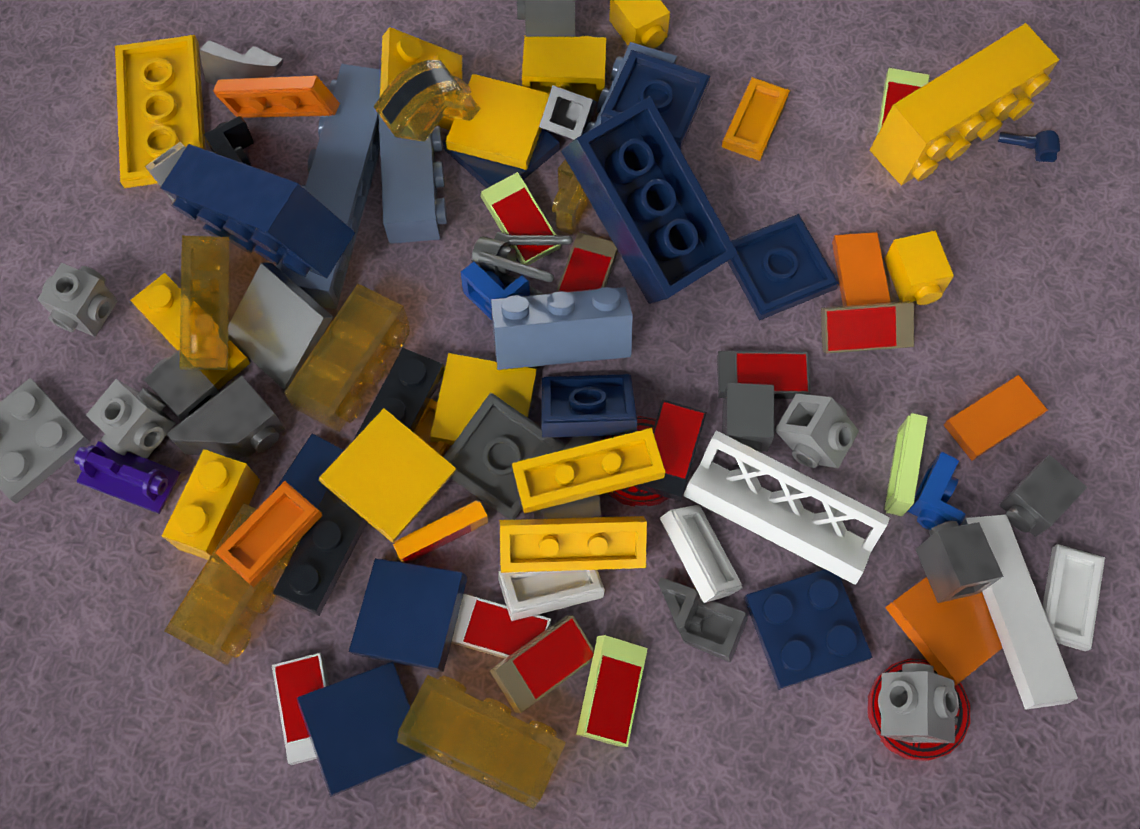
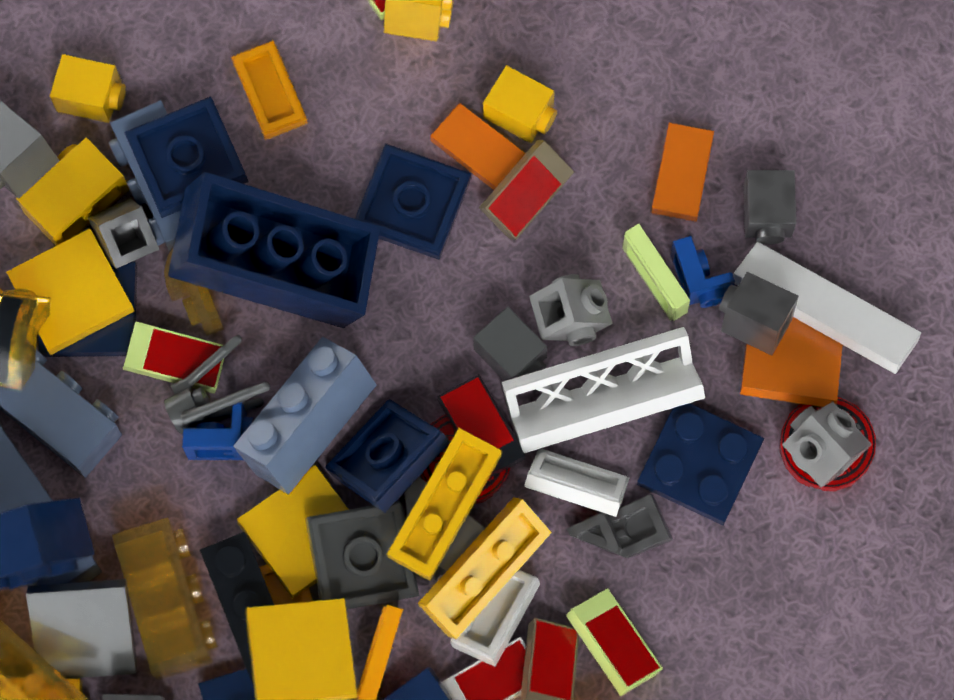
camera: 45 degrees left, 5 degrees up
(588, 264) = (268, 347): red tile -> none
(782, 369) = (484, 299): red tile -> none
(1073, 595) = (854, 257): white tile -> none

